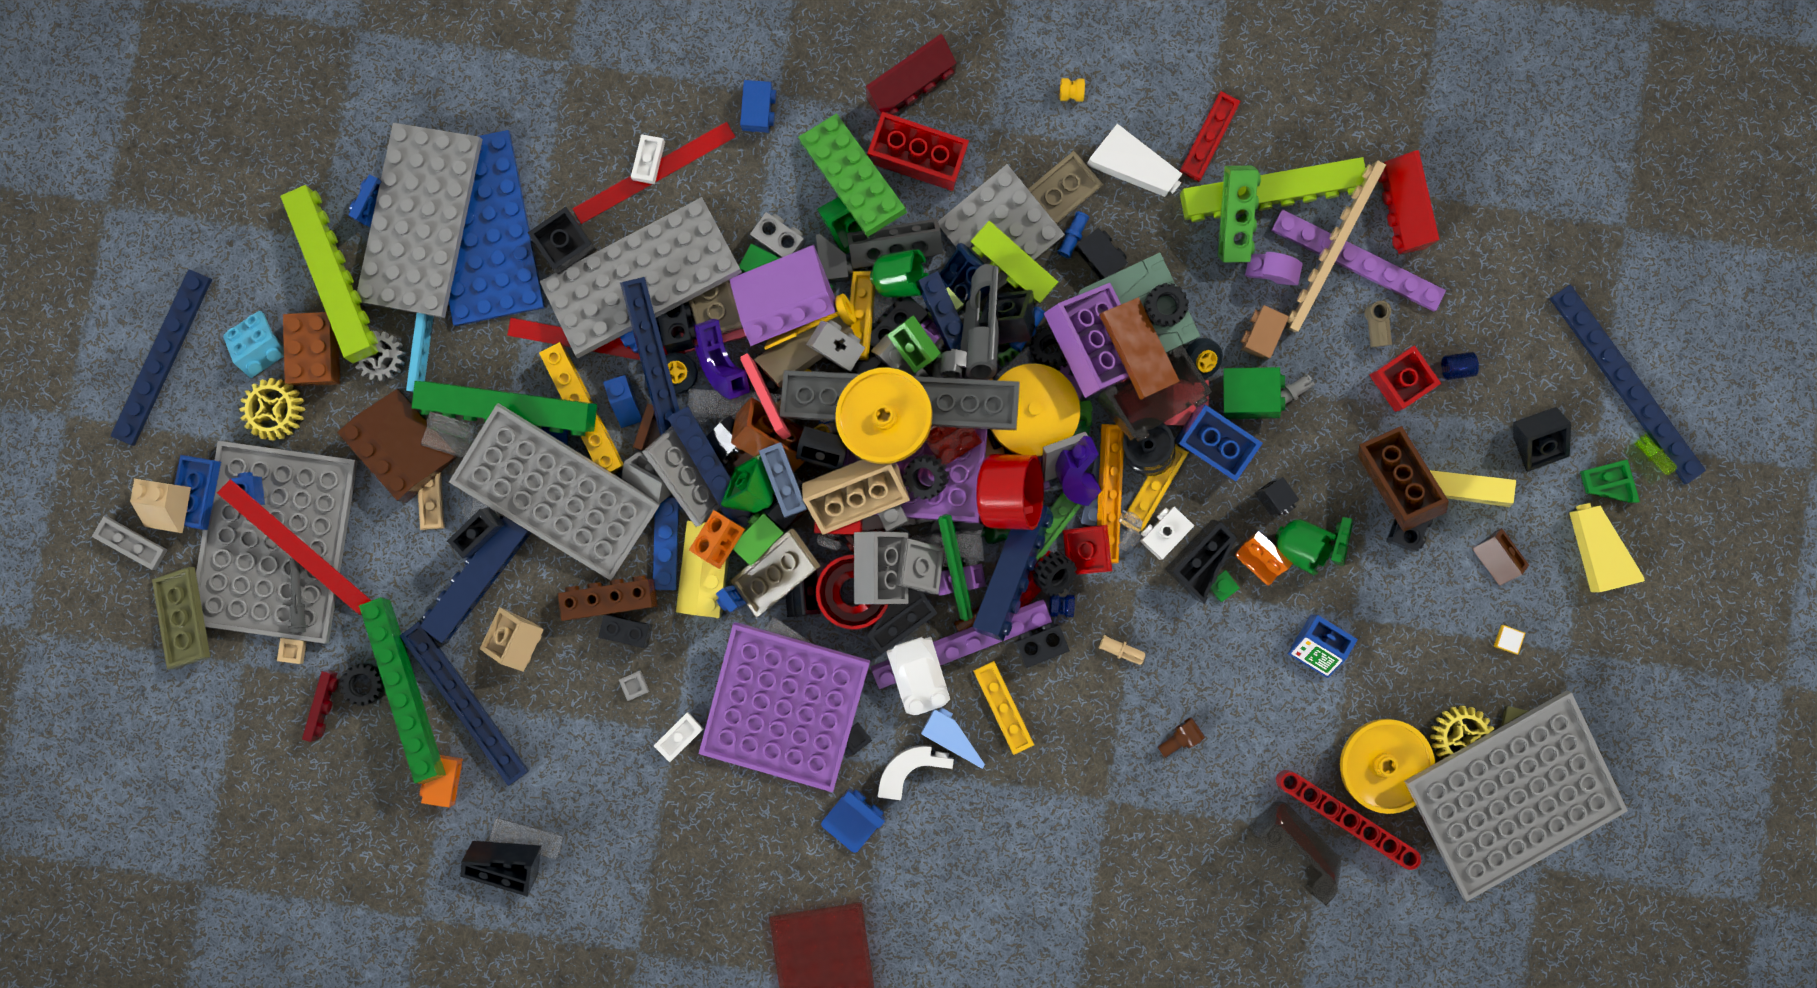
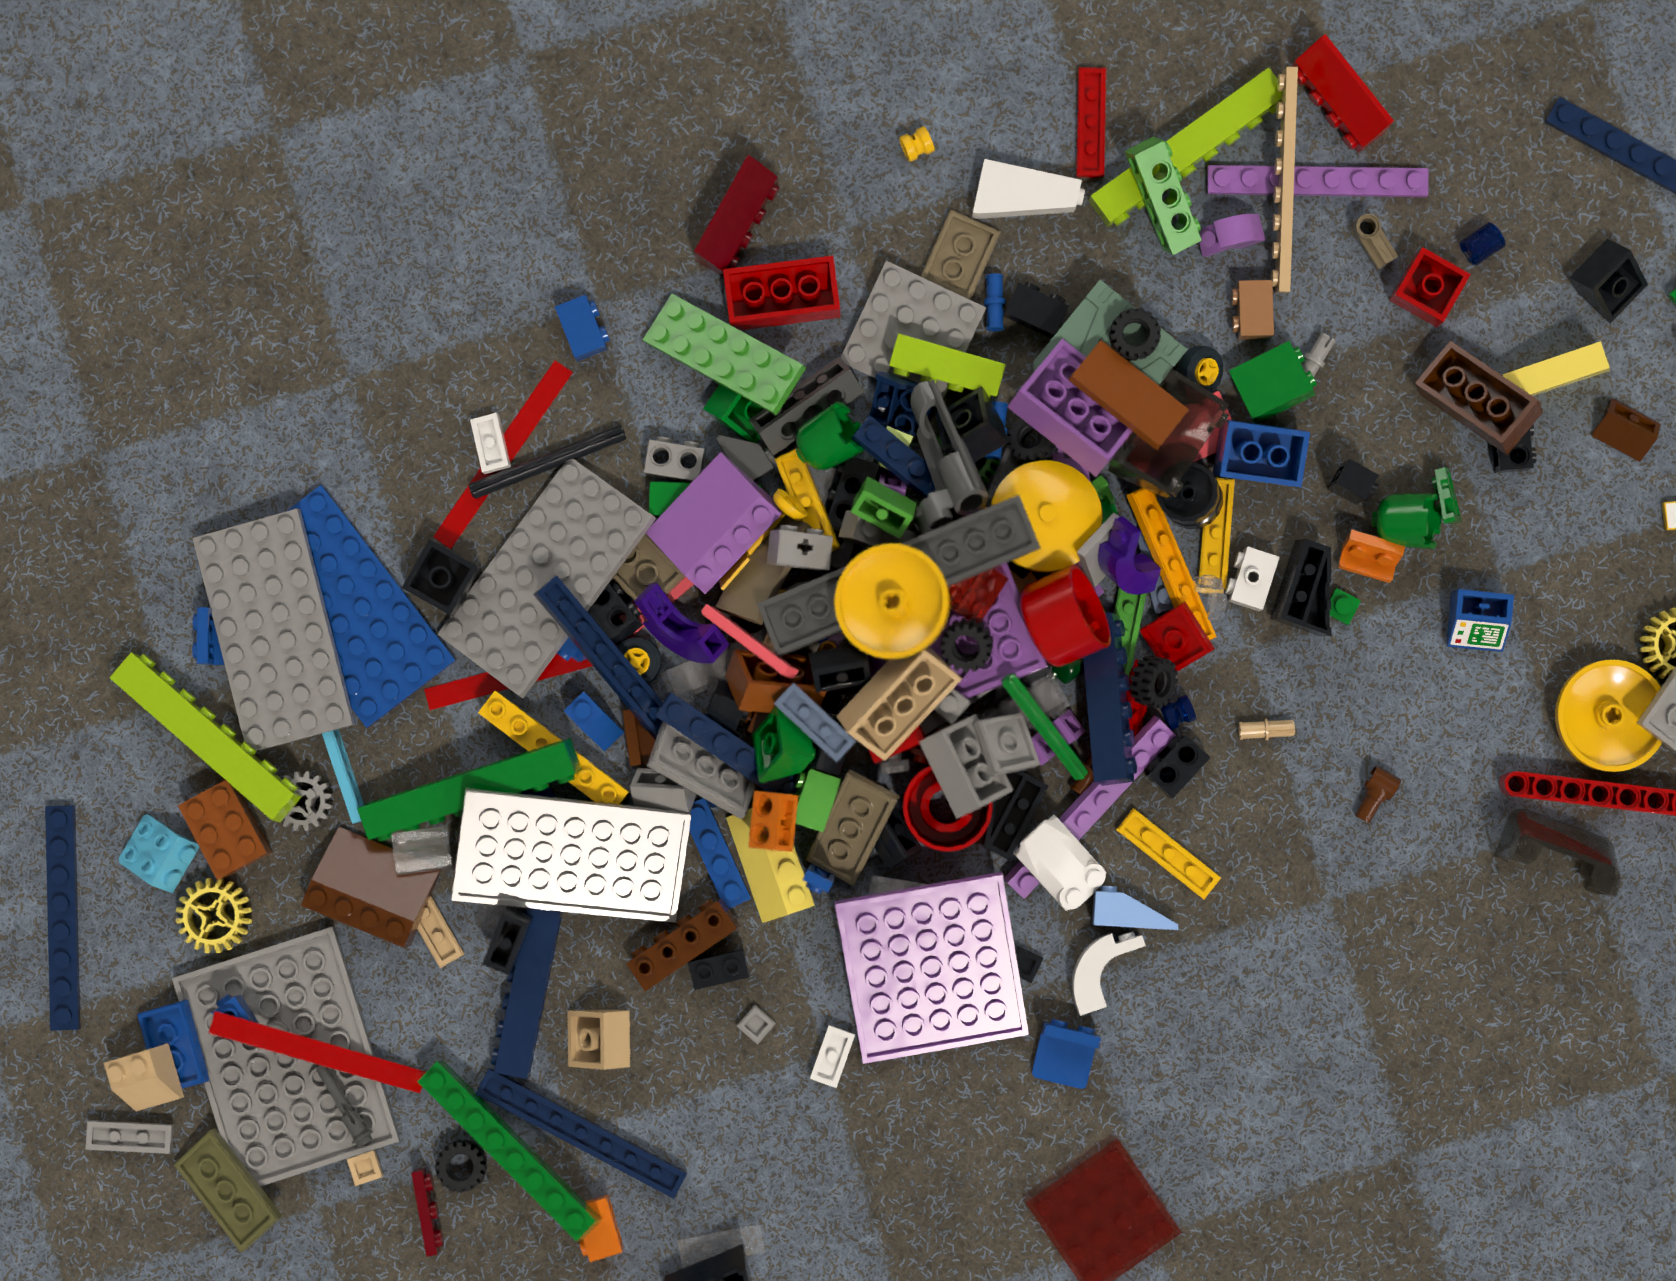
camera: 20 degrees left, 0 degrees up
(683, 193) = (547, 461): none -> black axle

